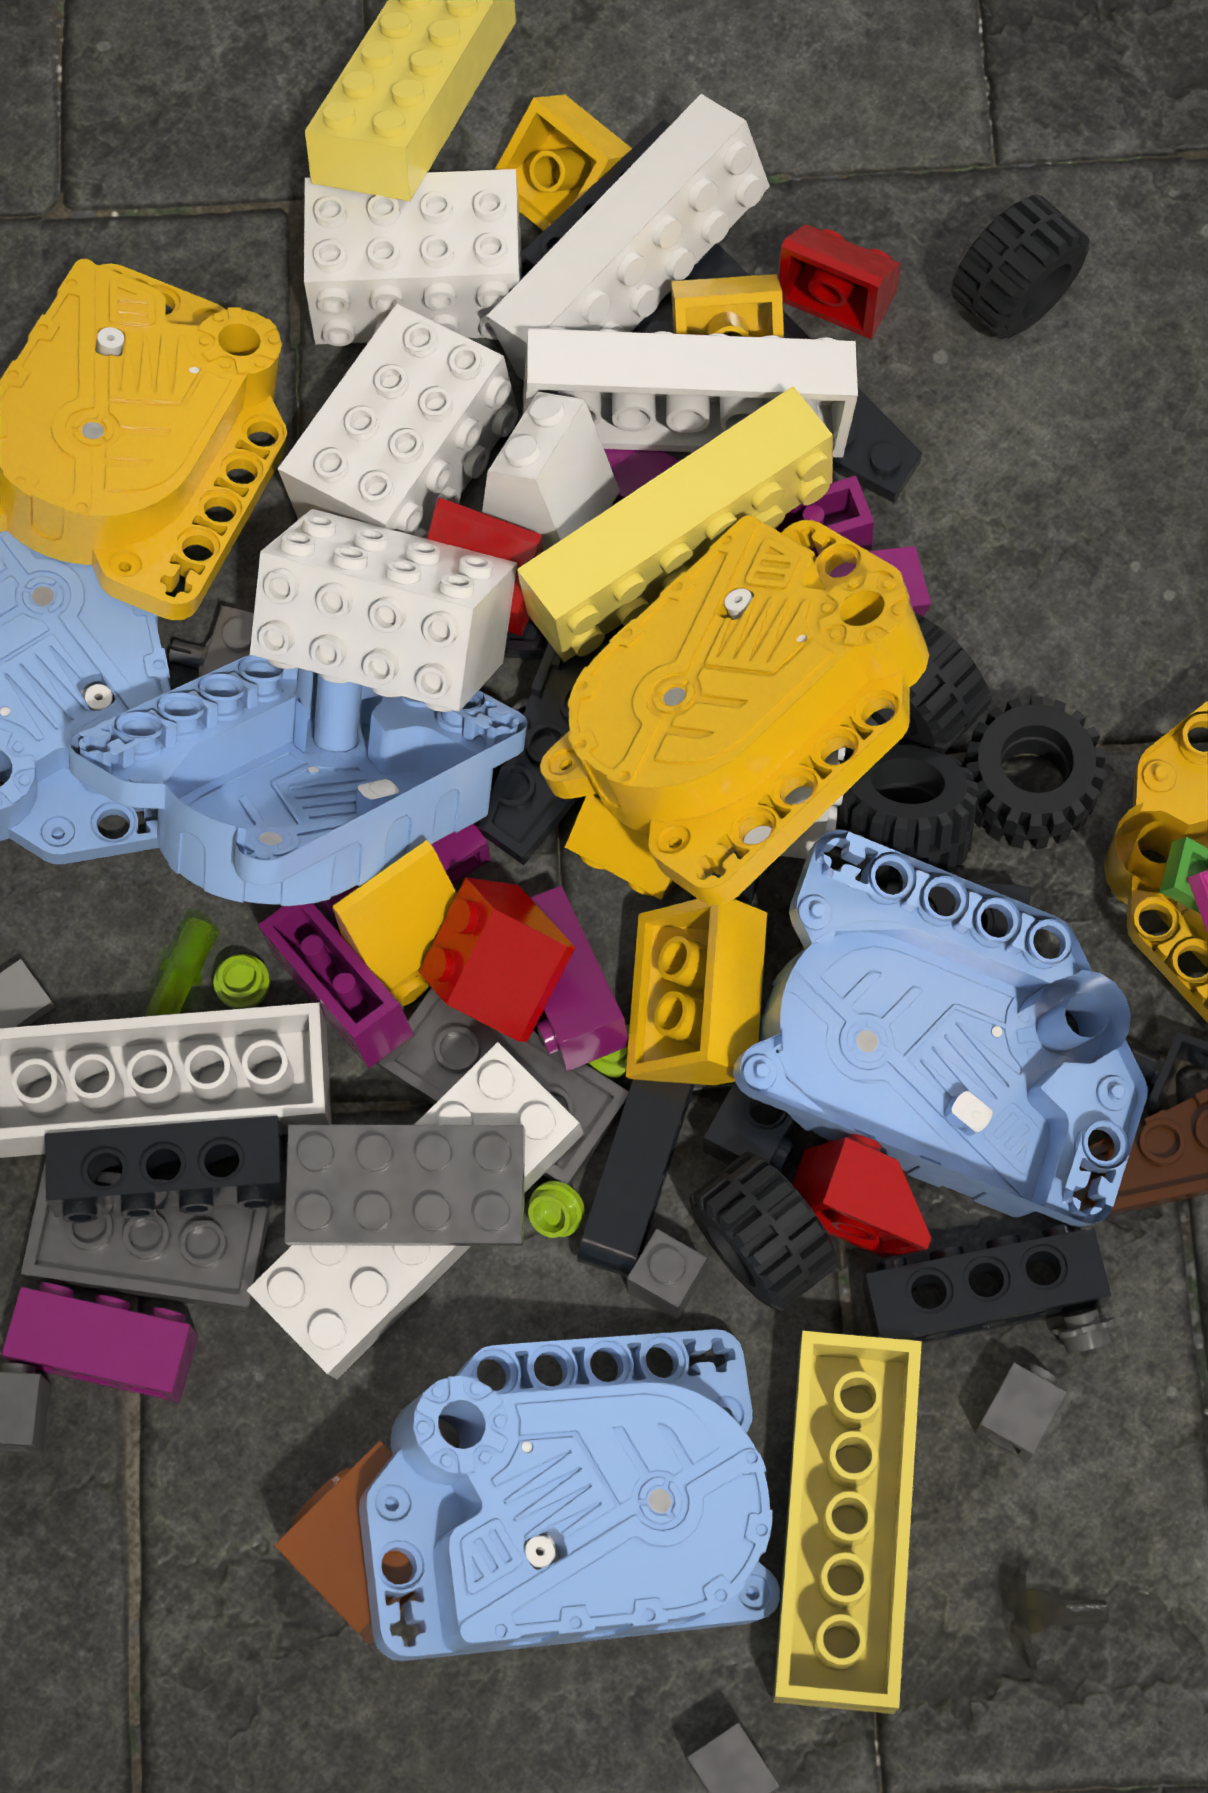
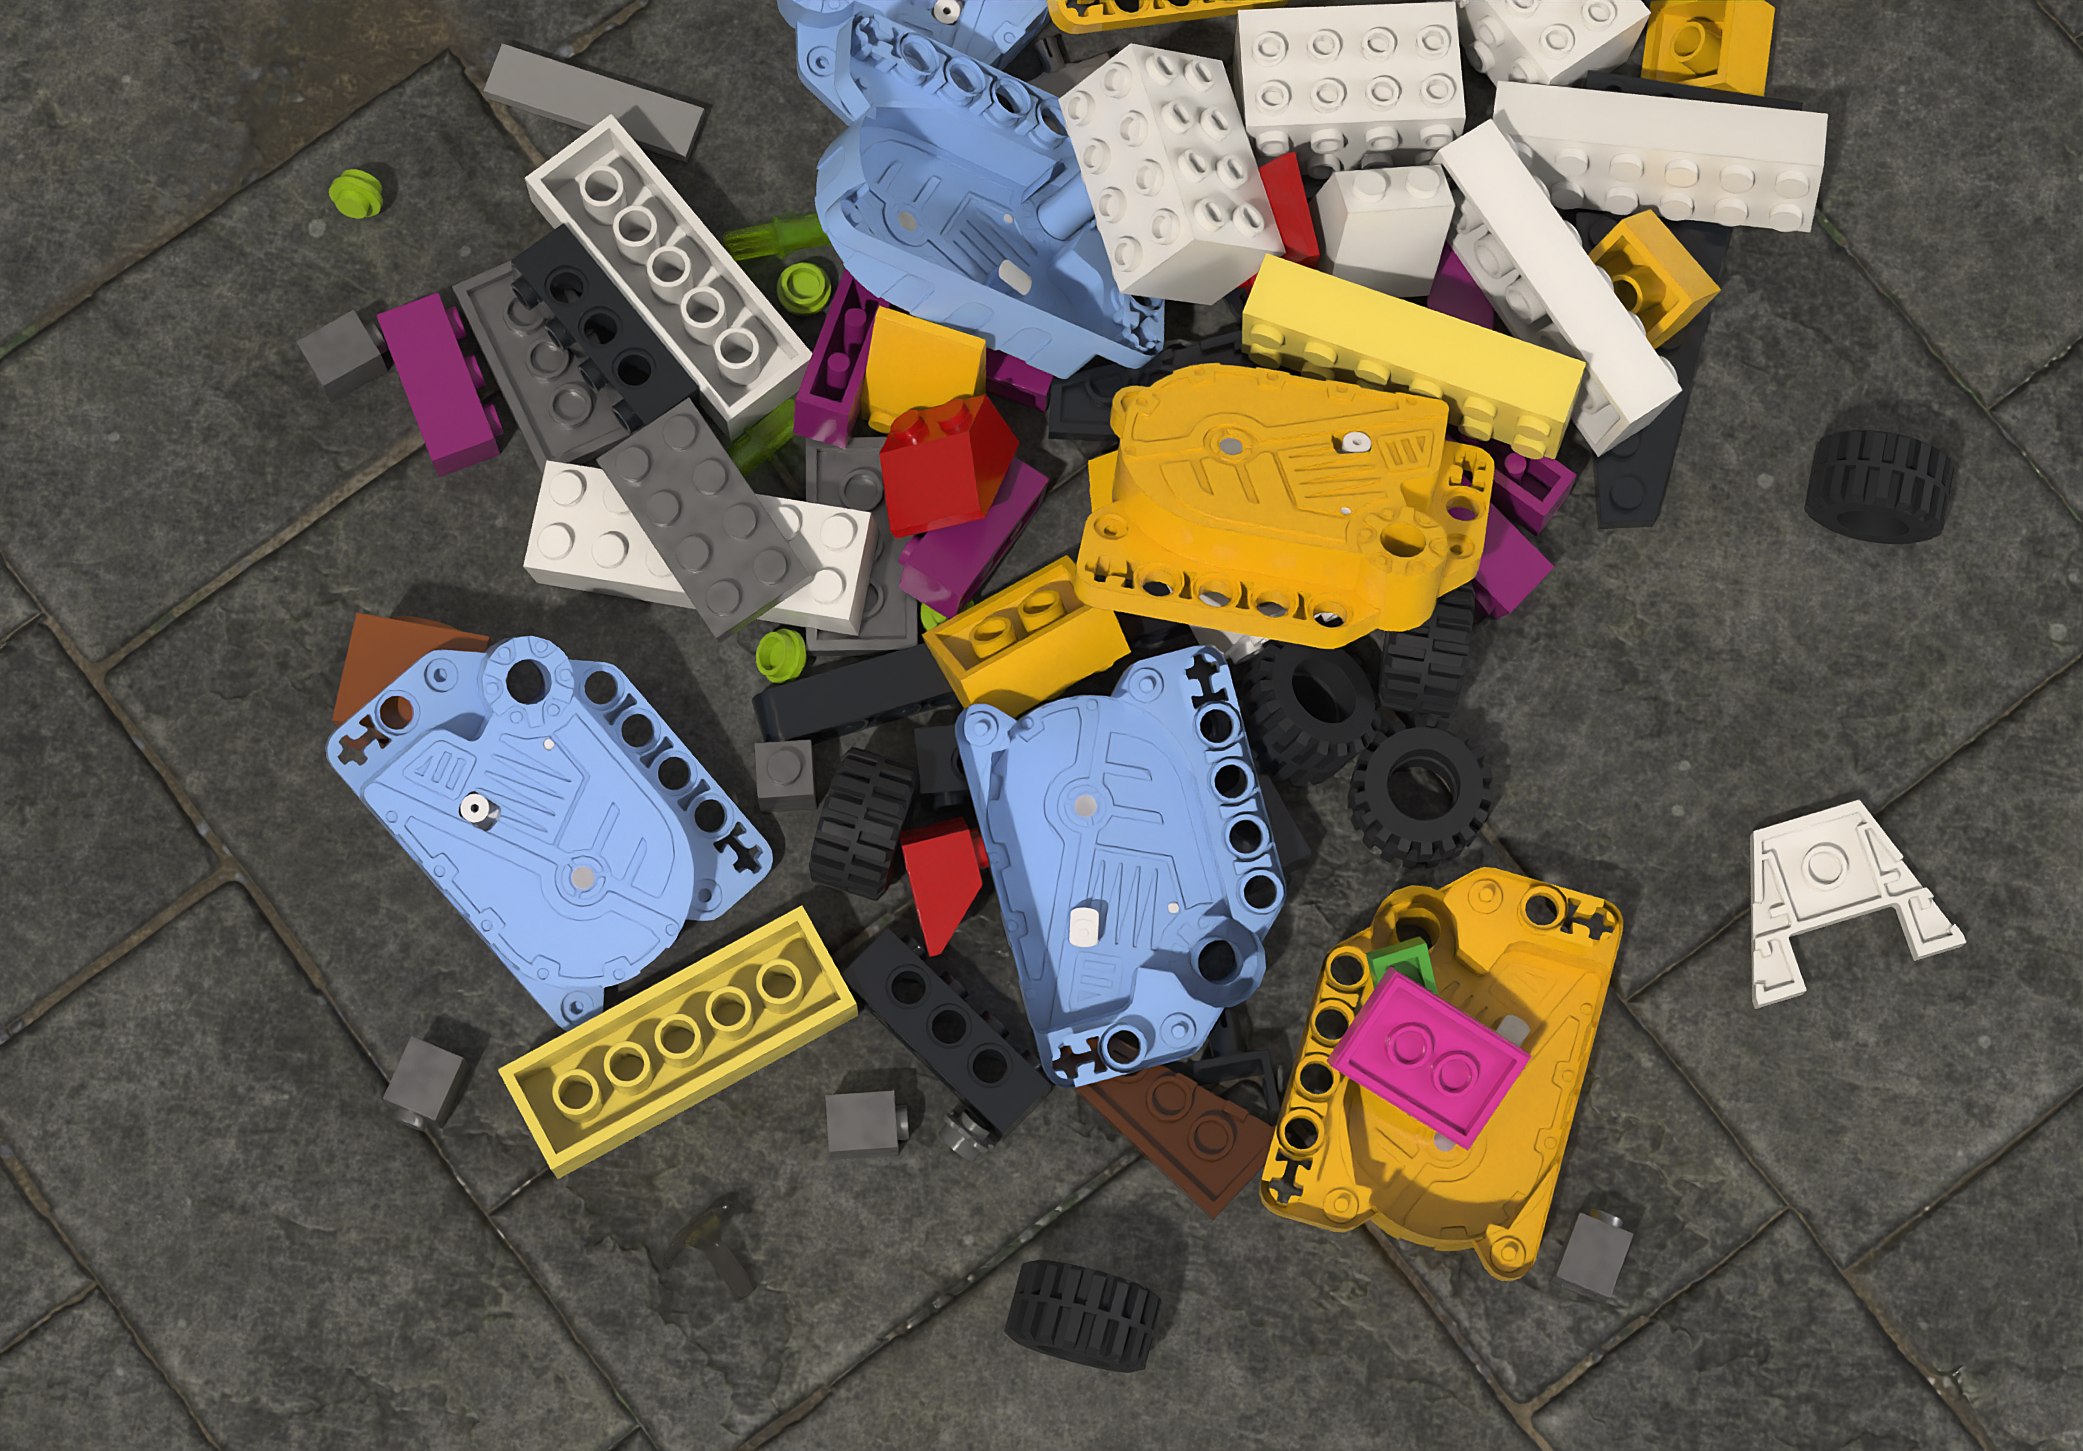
camera: 50 degrees right, 5 degrees up
(350, 1089) = (763, 439): none -> clear neon green axle
(837, 279) = (1767, 344): red slope -> none

